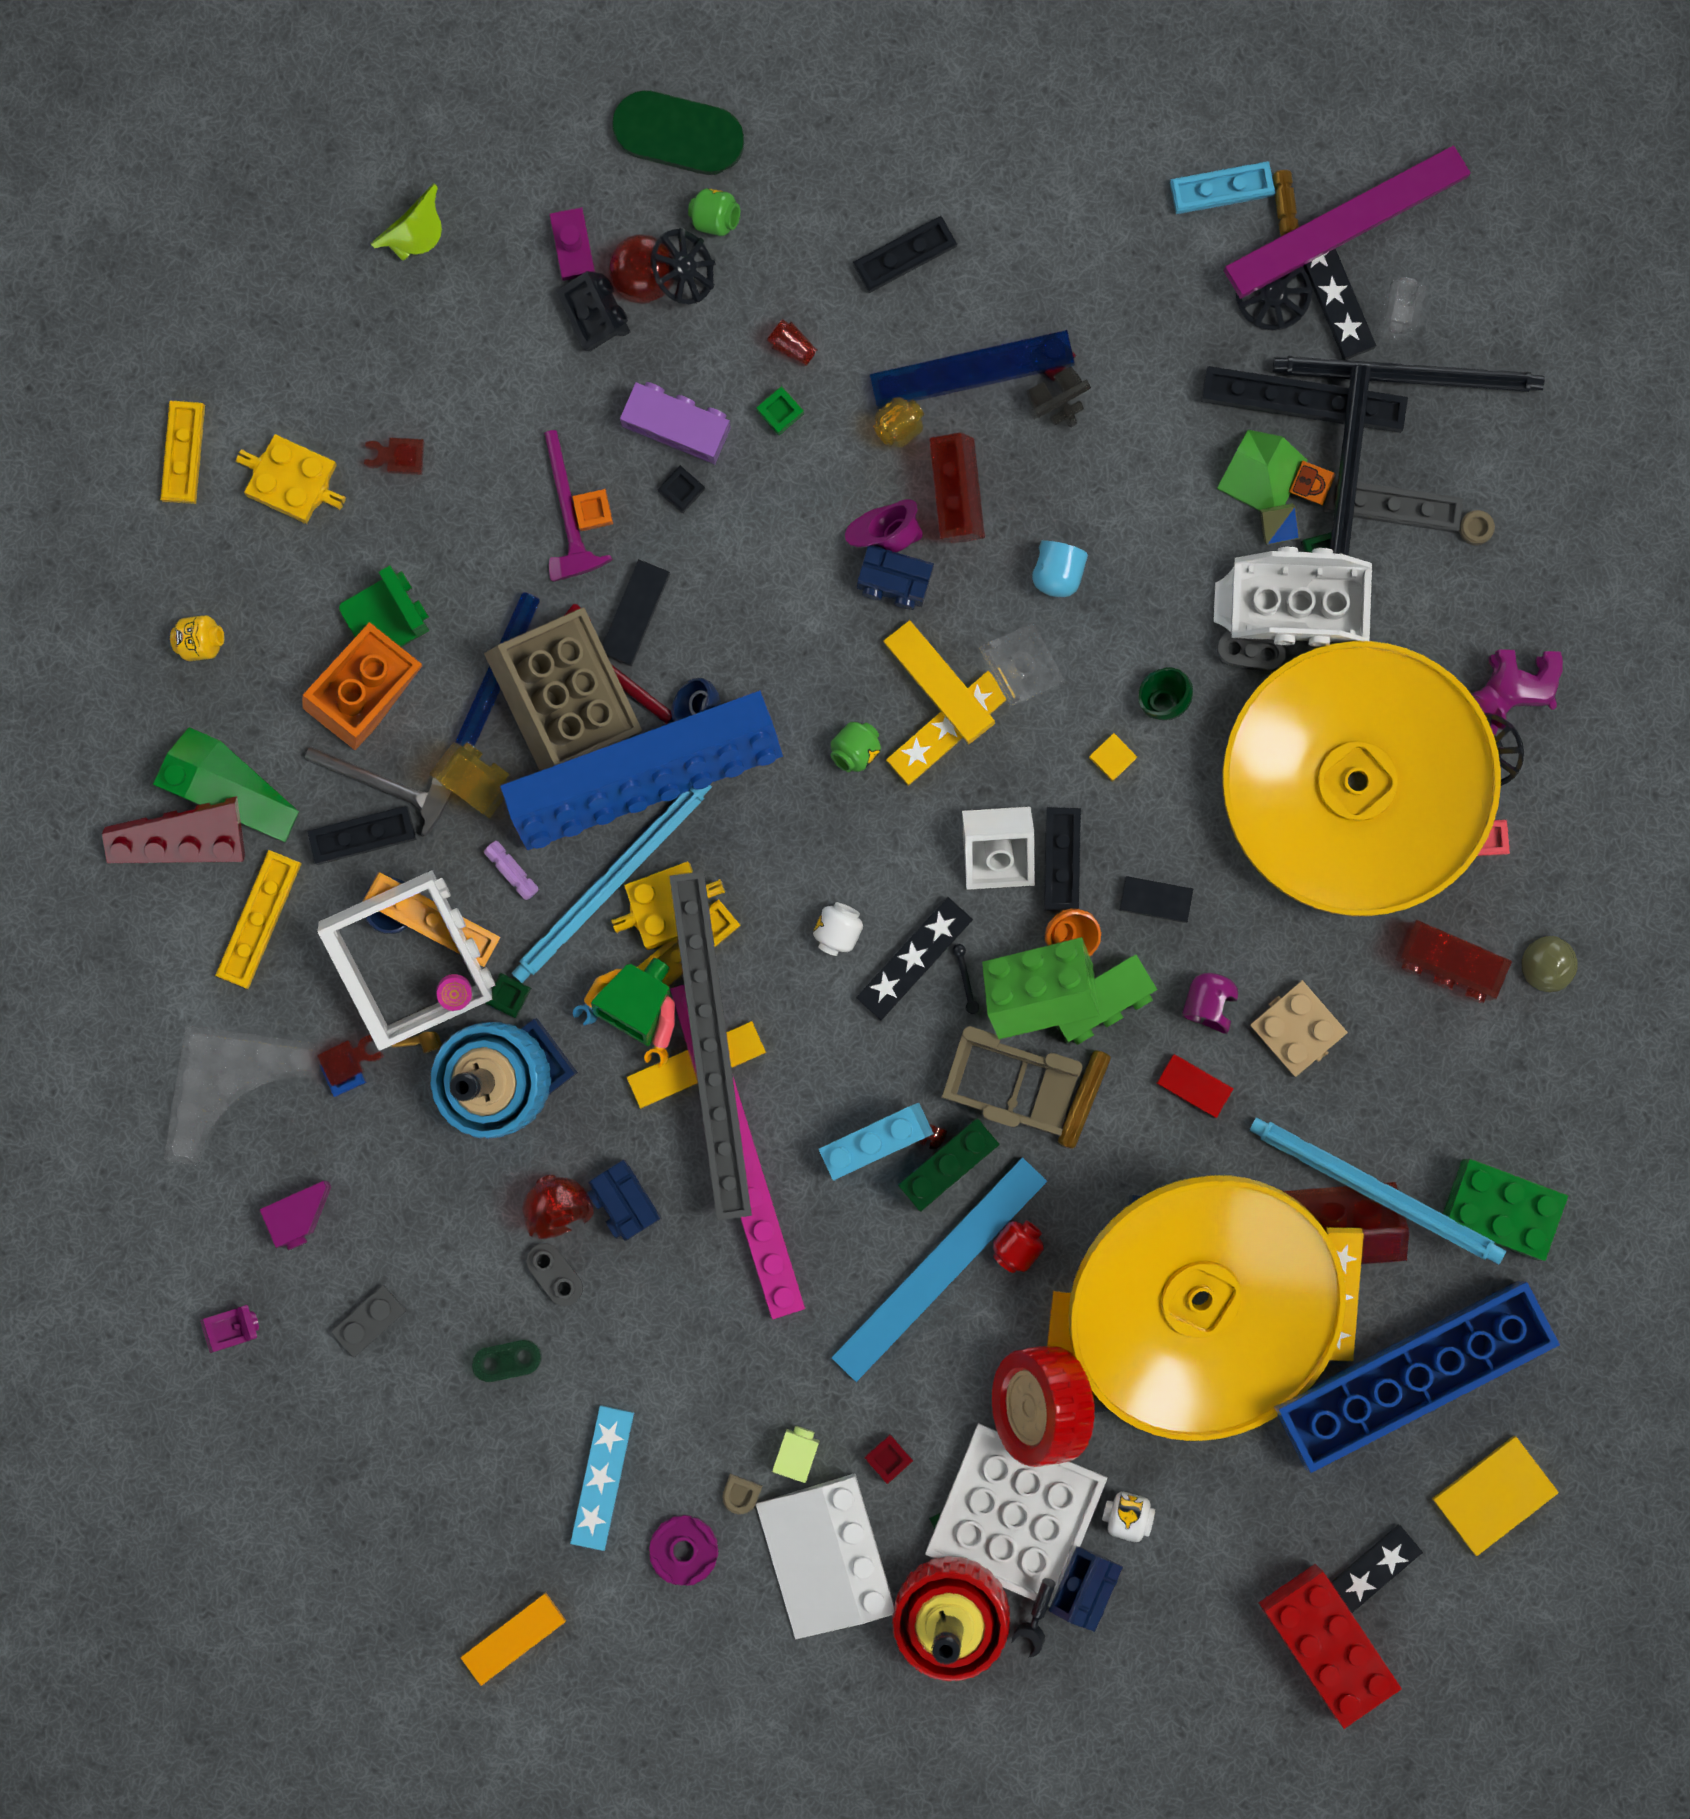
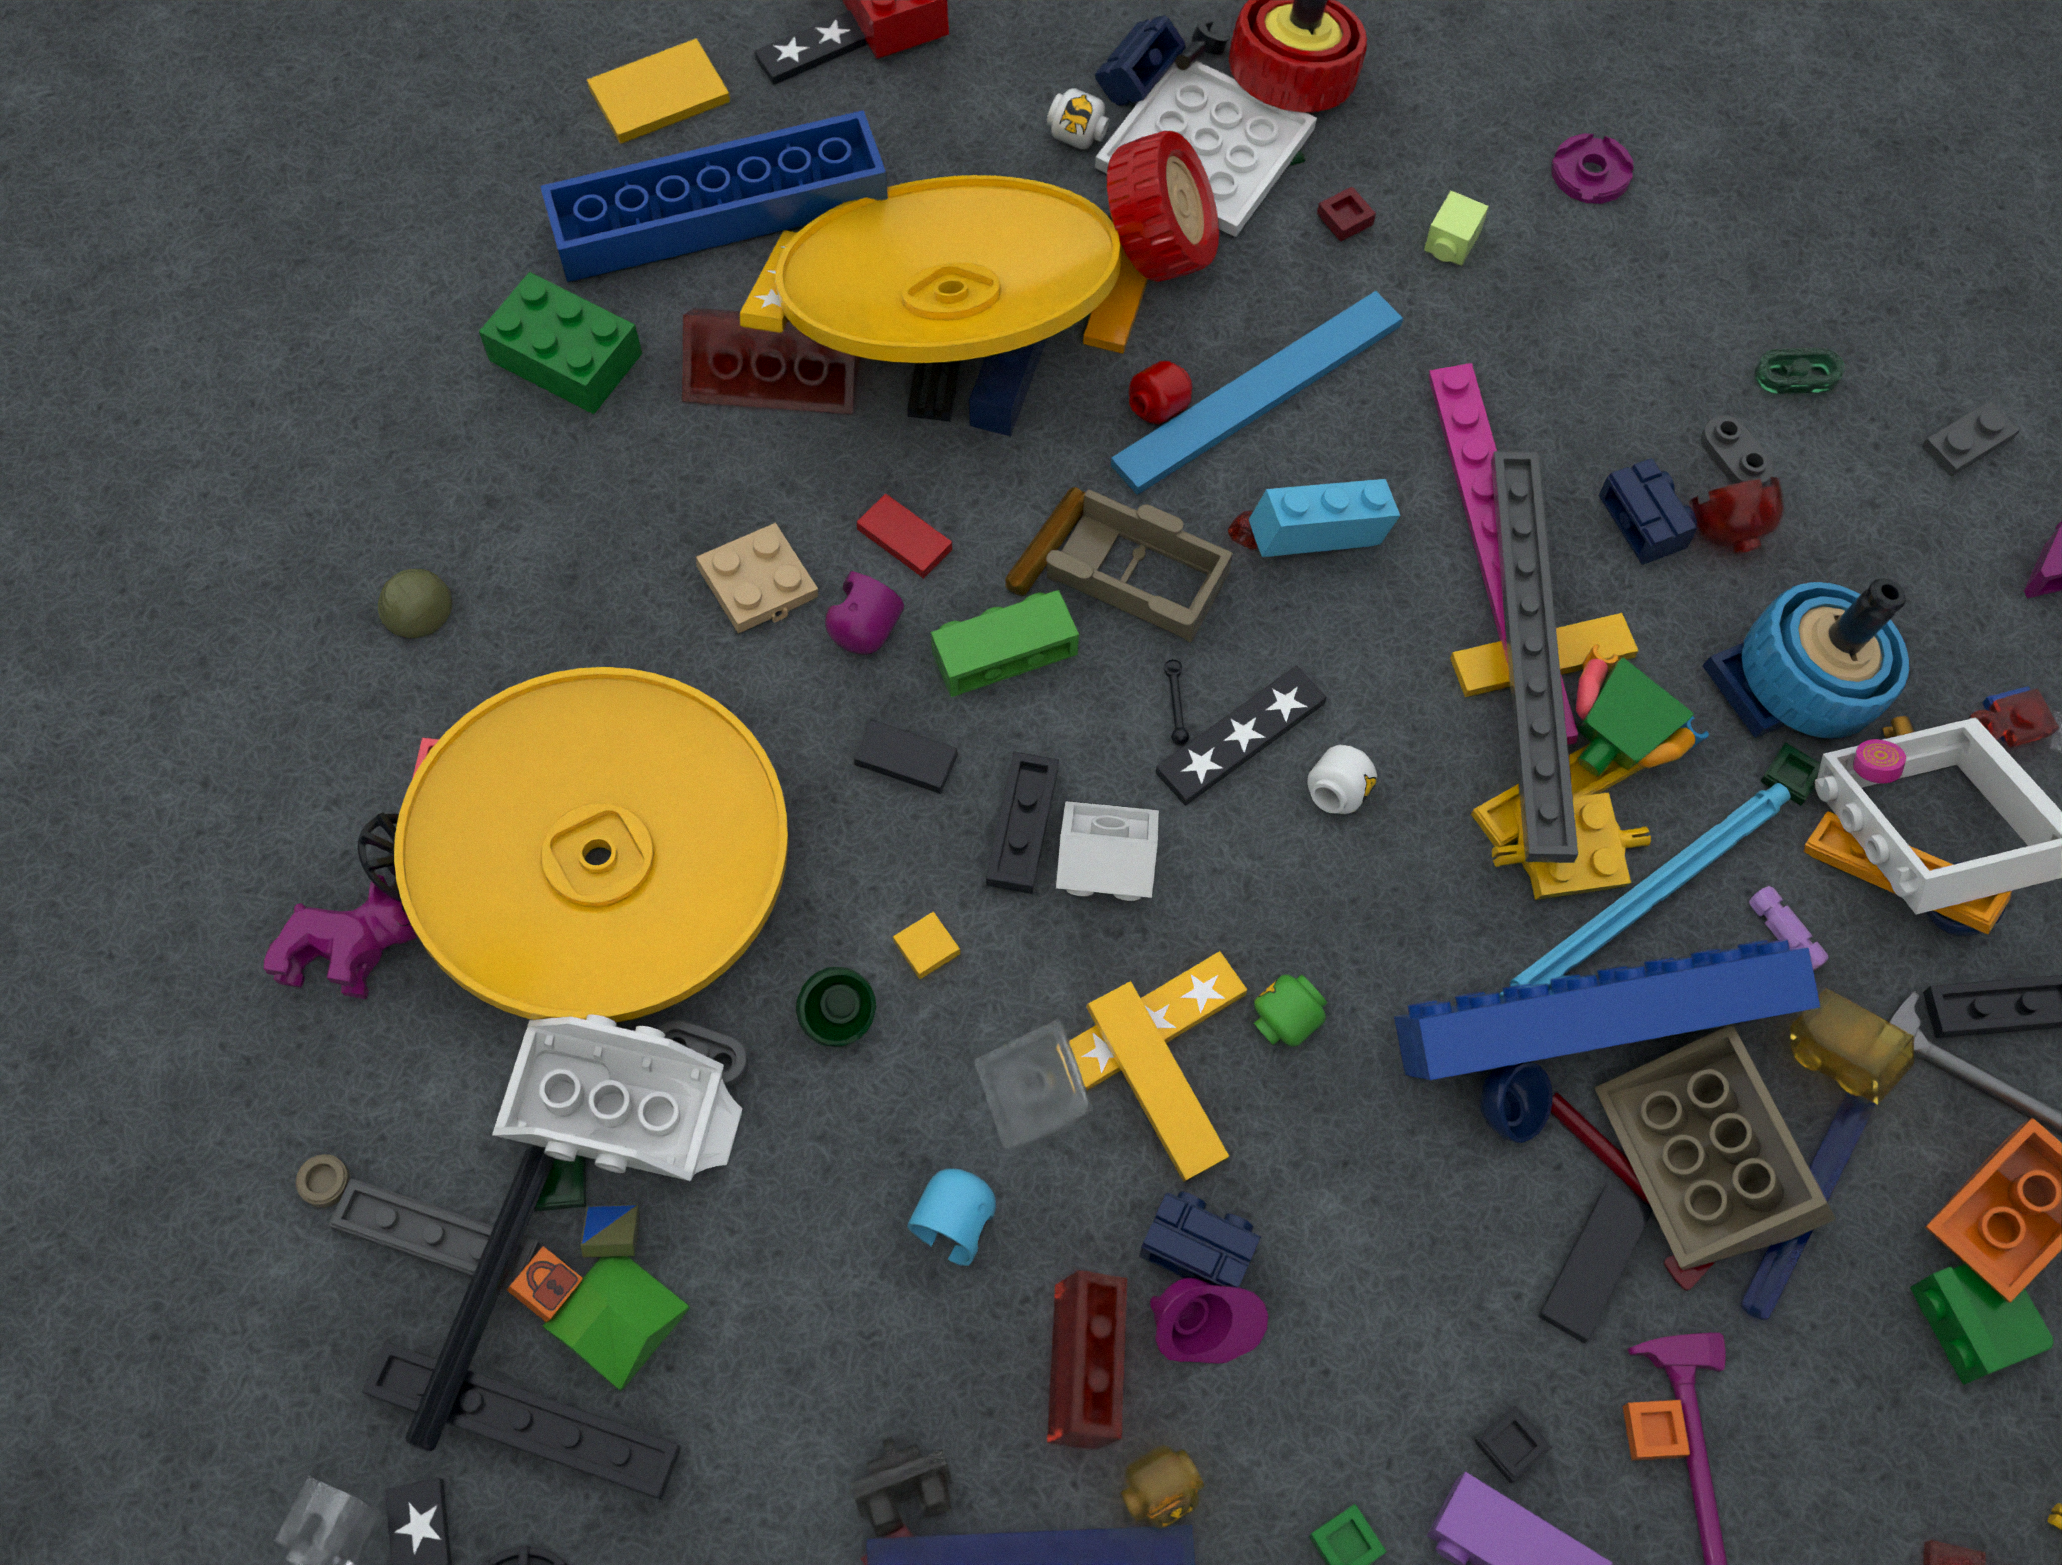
camera: 175 degrees left, 20 degrees down
(513, 1639) = (1792, 116): light orange tile -> none
(602, 1478) = (1684, 247): medium azure tile -> none
(740, 1494) = (1522, 209): dark tan tile -> none
(826, 1557) = (1425, 134): white slope -> none
(948, 1164) = (1233, 484): dark green brick -> none
(1040, 988) = (1086, 647): bright green brick -> none
(1072, 925) = (1028, 720): orange piece -> none
(1378, 1191) = (708, 373): medium azure piece -> none
(1411, 374) = (350, 1435): black piece -> none
(1453, 962) = (536, 616): clear red brick -> none

